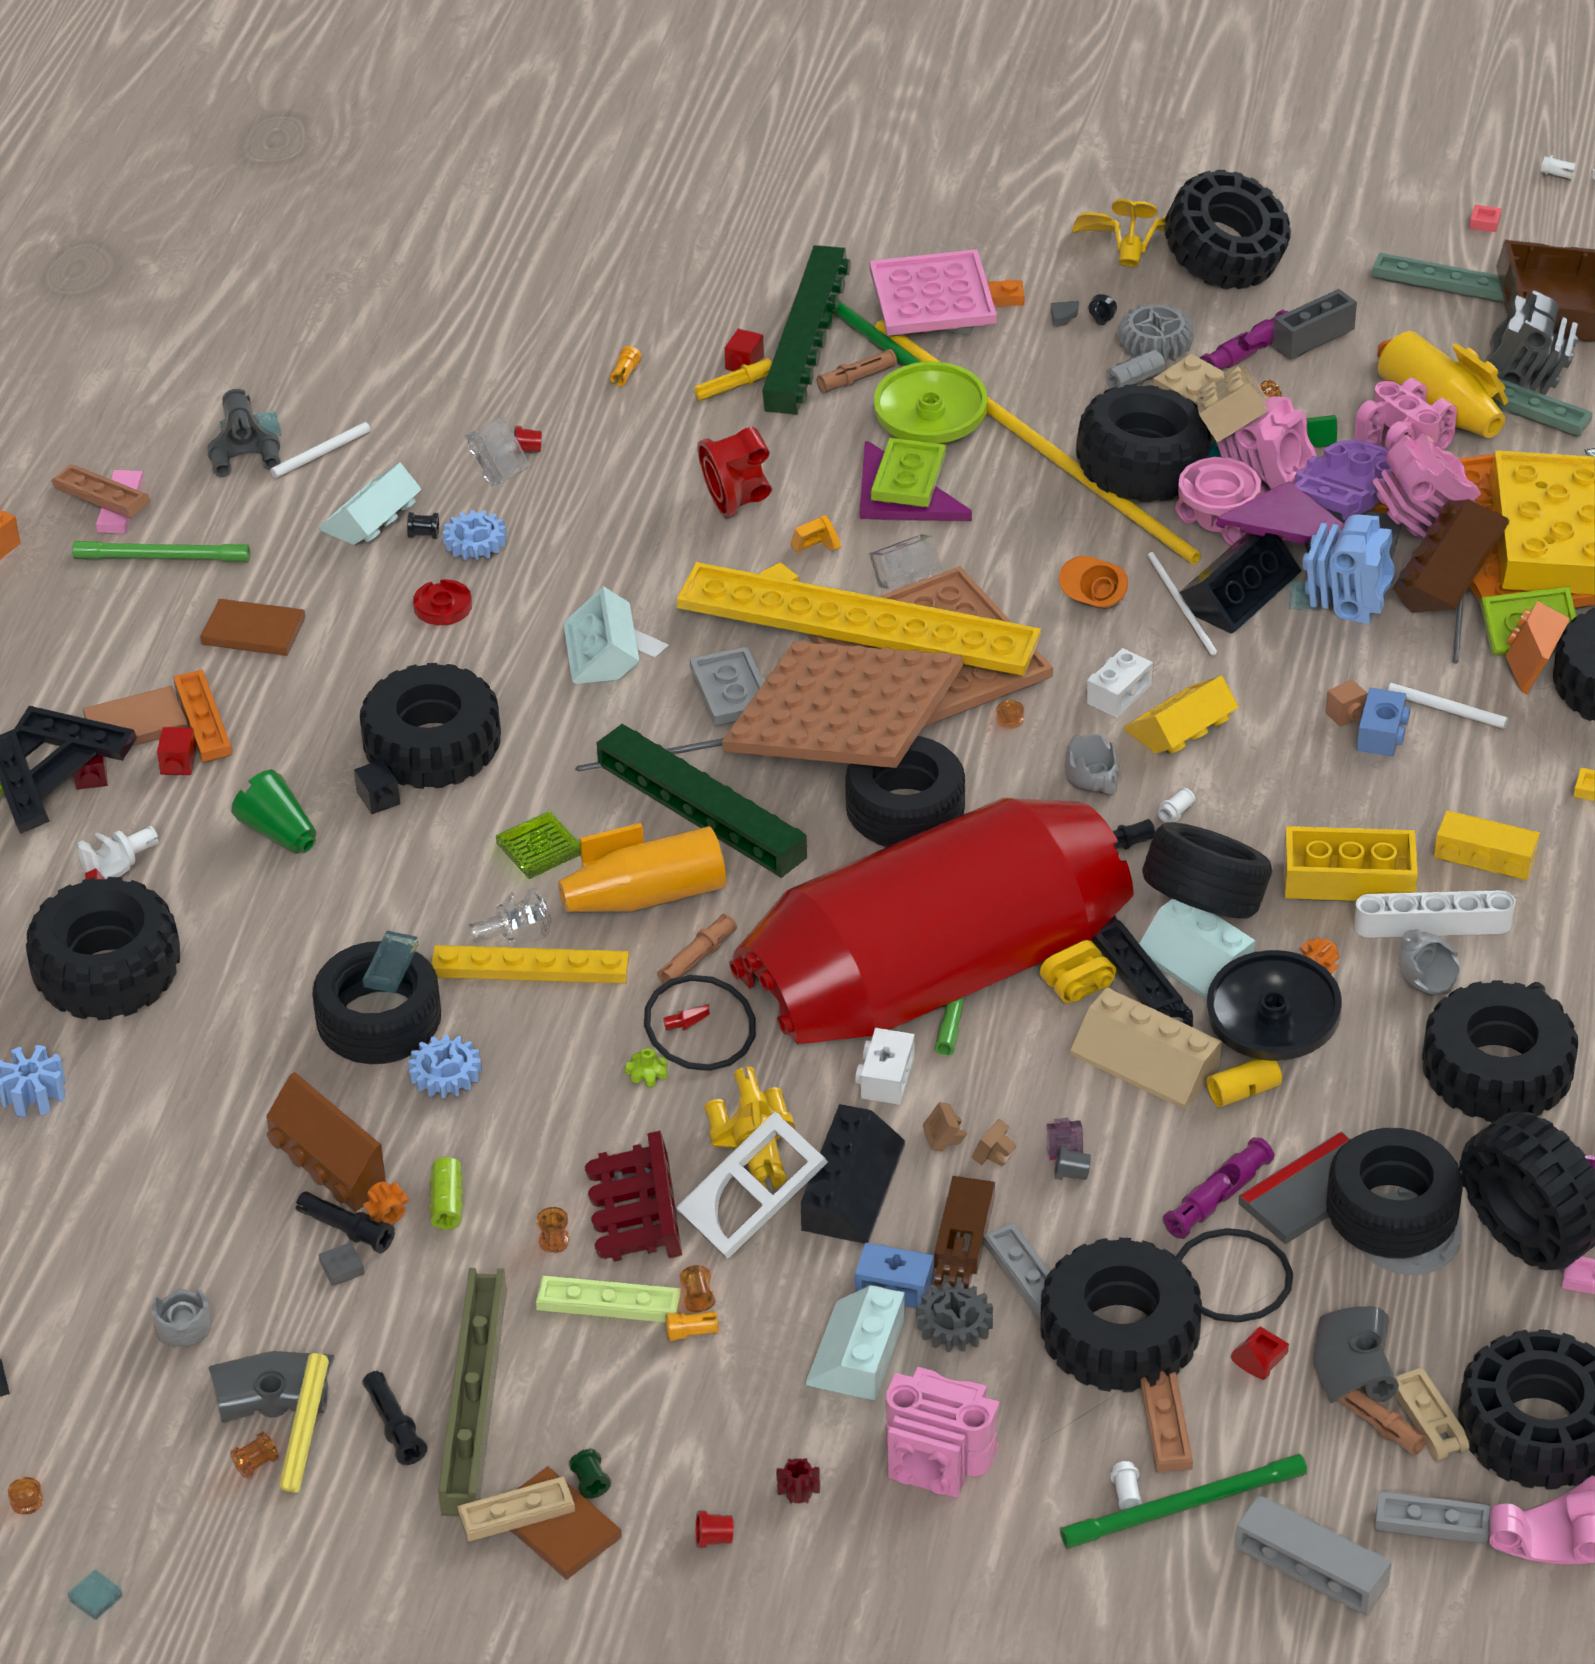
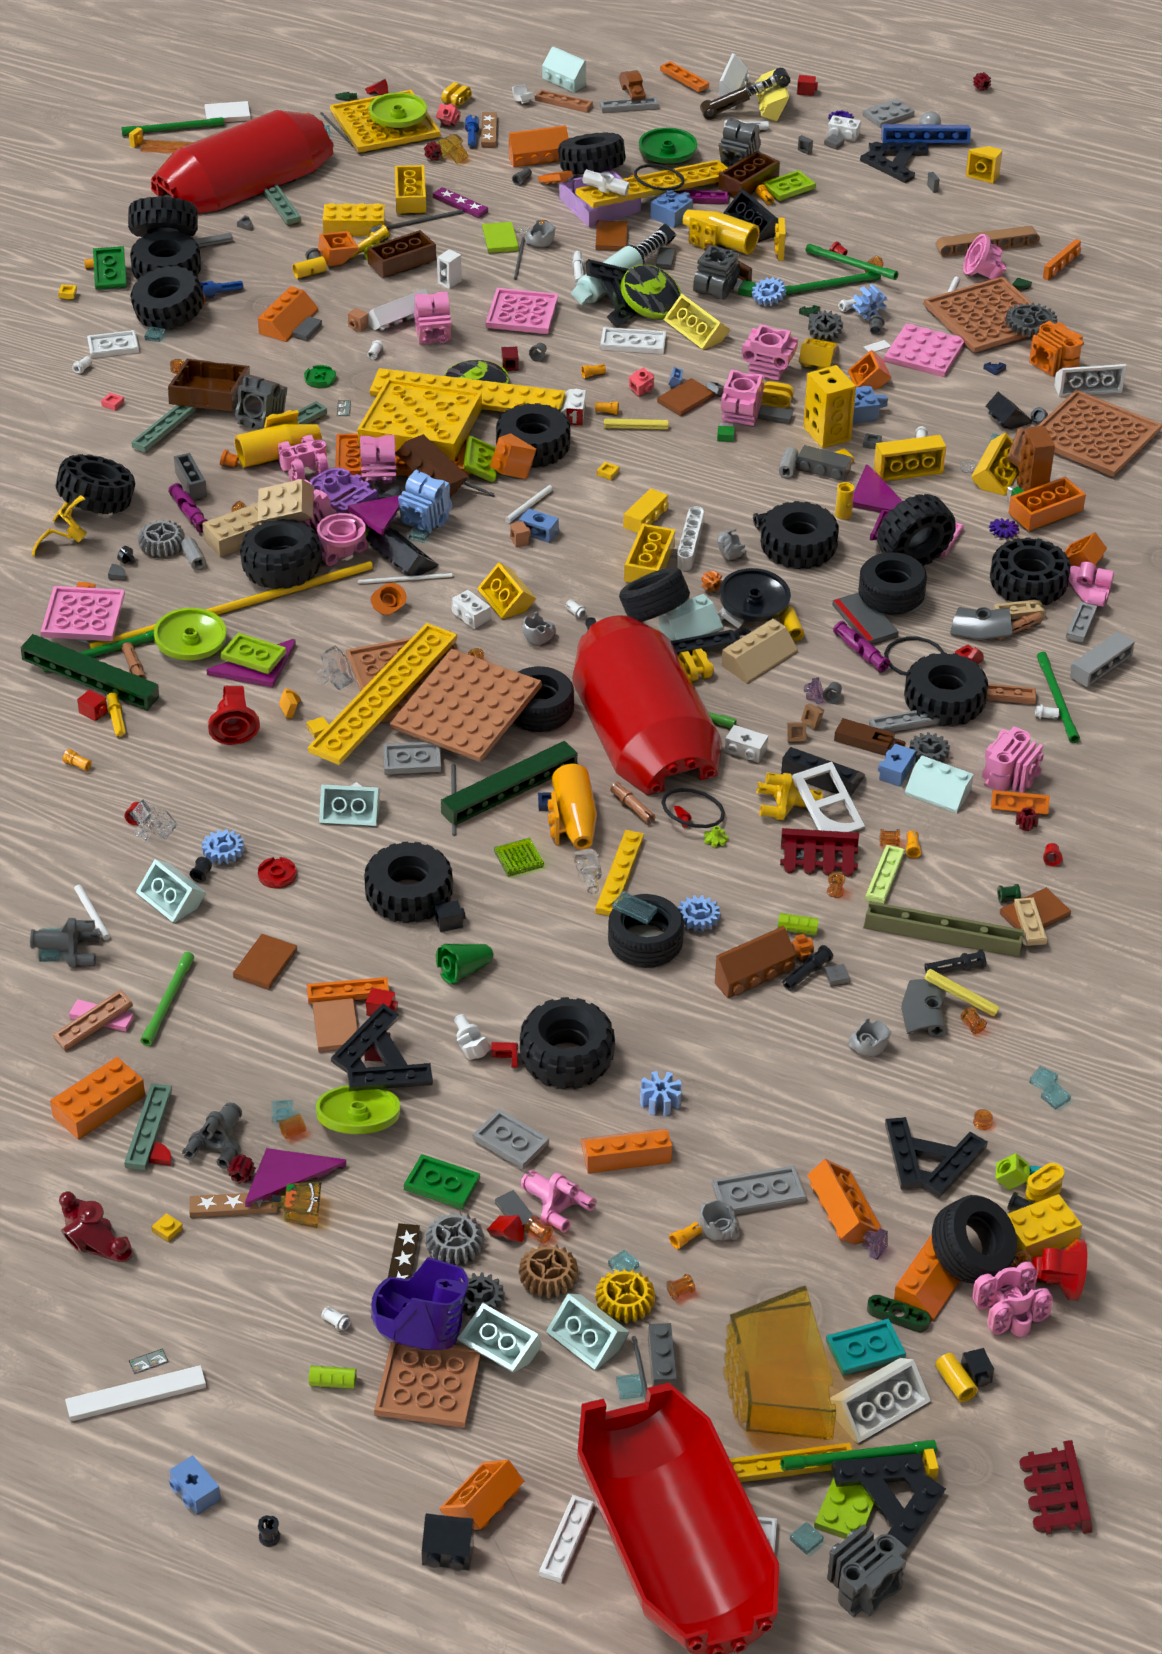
camera: 80 degrees left, 0 degrees up
(134, 1572) = (1043, 1078): none -> clear light blue tile
(843, 1466) = (1017, 801): none -> orange plate

